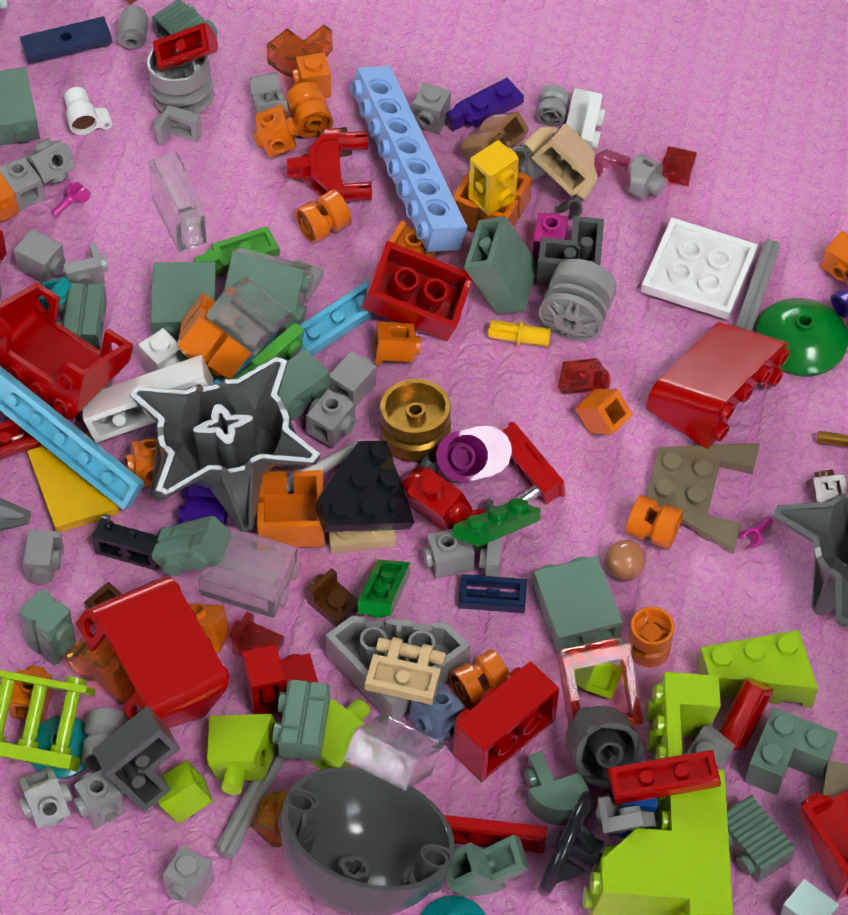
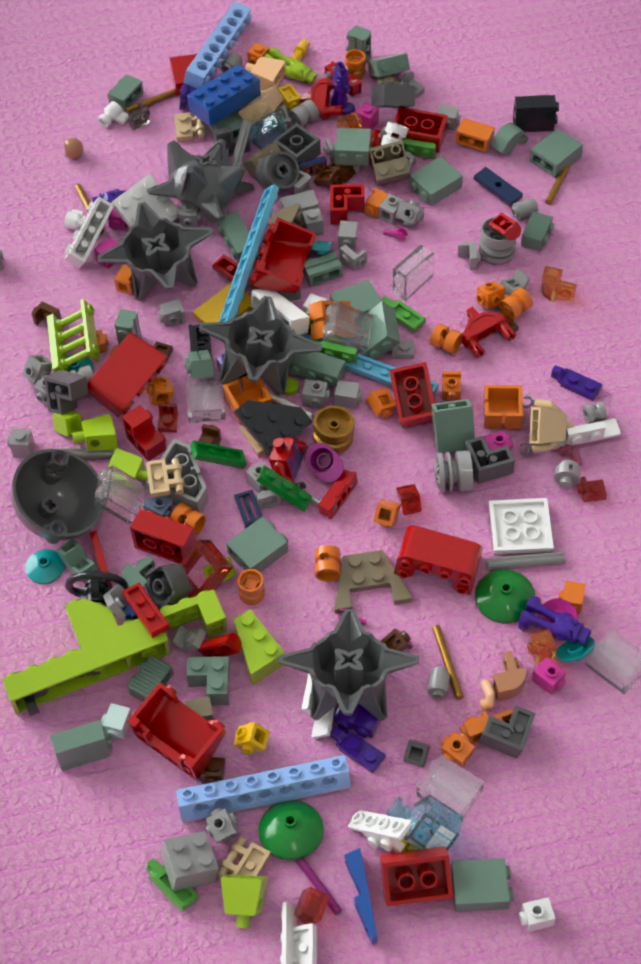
camera: 70 degrees right, 0 degrees up
(82, 115) = (452, 213): white piece -> none
(303, 720) = (118, 448): sand green brick -> none
(313, 69) = (542, 296): orange brick -> none
(408, 159) = (541, 331): light blue brick -> none
(431, 107) = (552, 355): light grey brick -> none
(493, 177) = (498, 392): yellow brick -> none
(505, 127) = (553, 392): medium nougat brick -> none
(519, 333) = (424, 458): yellow axle -> none
(625, 560) = (297, 559): nougat piece -> none

